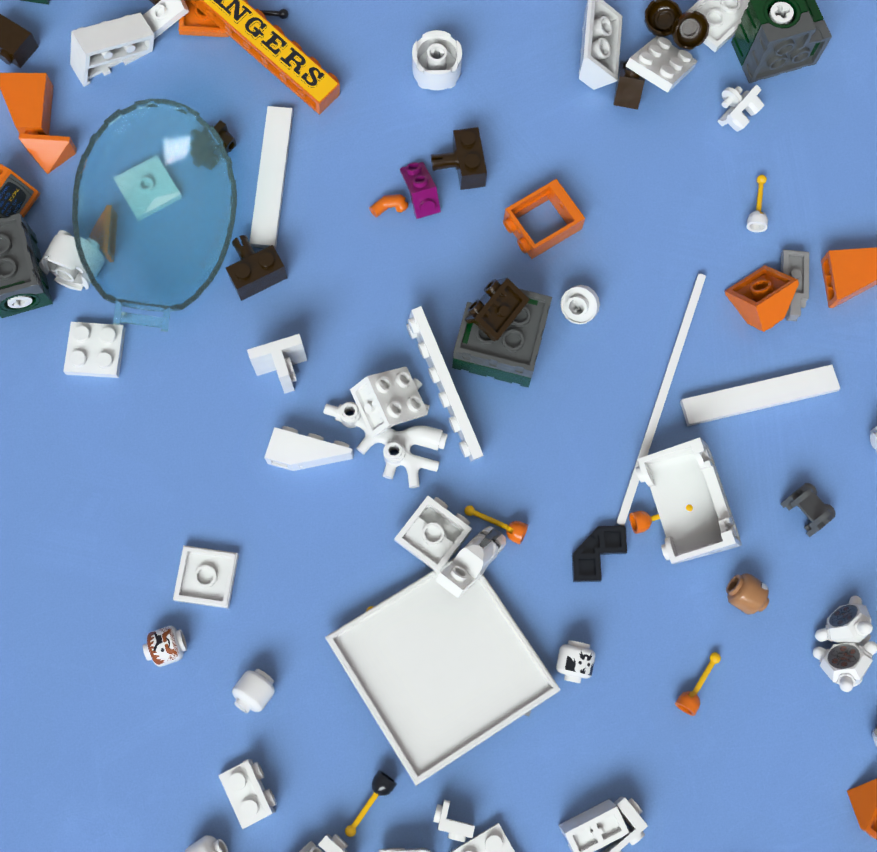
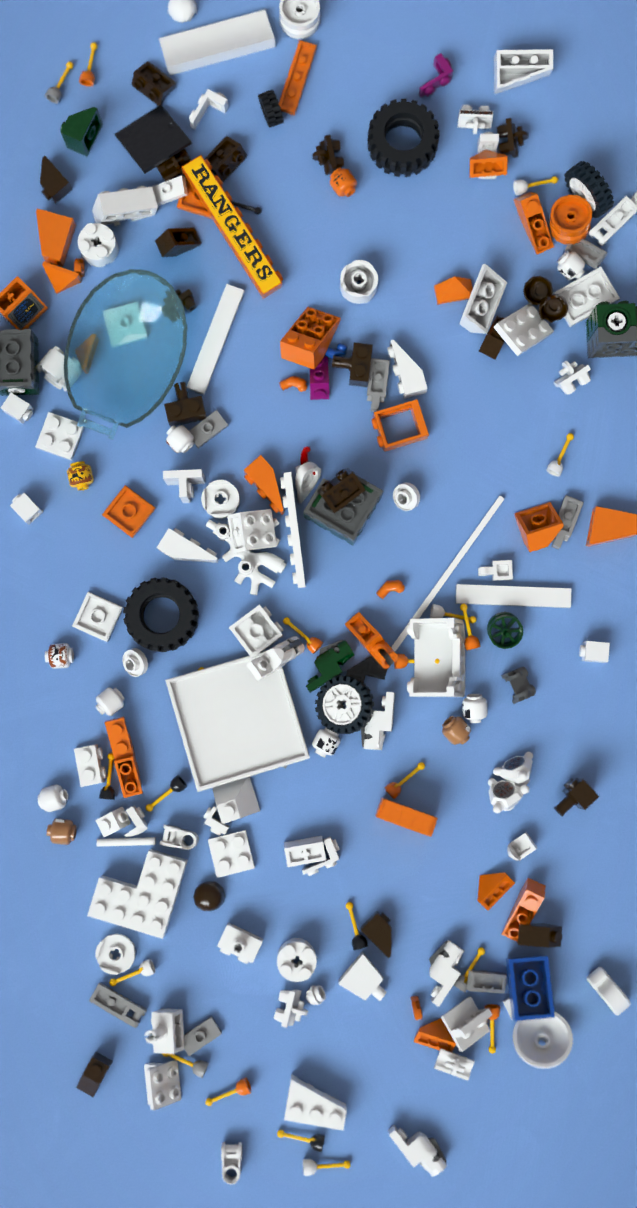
camera: 20 degrees right, 10 degrees up
(27, 327) = (17, 408): none -> white brick
(69, 130) = (79, 266): none -> orange tile
(69, 455) = (26, 508): none -> white brick
(87, 98) = (94, 235): none -> white brick
(134, 392) = (80, 475): none -> head
(189, 71) = (177, 241): none -> dark brown slope
(213, 422) = (128, 511): none -> orange plate
(258, 309) = (179, 439): none -> white head
(272, 519) = (135, 614): none -> black tyre
(275, 624) = (135, 662): none -> white plate
(283, 825) = (107, 791): none -> hinge
(291, 289) = (208, 428): none -> light grey plate
(295, 766) = (124, 757): none -> orange slope
(320, 366) = (213, 507): none -> white plate
(385, 331) = (264, 478): none -> orange slope
(393, 143) = (309, 338): none -> orange slope
(424, 154) = (340, 351): none -> blue arm
(440, 311) = (306, 475): none -> white piece
(472, 782) = (235, 800): none -> white slope
(498, 177) = (377, 382): none -> light grey hinge
(536, 155) = (410, 374): none -> white slope
(545, 550) = (328, 663): none -> dark green plate
(556, 44) = (453, 290): none -> orange slope
(592, 621) = (358, 704): none -> wheel
(595, 502) = (371, 640): none -> orange plate
(596, 425) = (392, 585): none -> orange arm
(637, 614) = (381, 721): none -> white plate
(669, 440) = (438, 612): none -> hinge
(723, 734) = (406, 817): none -> orange axle
(726, 468) = (471, 641): none -> hinge
(731, 366) = (500, 570): none -> white plate
(762, 556) = (474, 708): none -> white head
(767, 440) = (505, 630): none -> dark green wheel

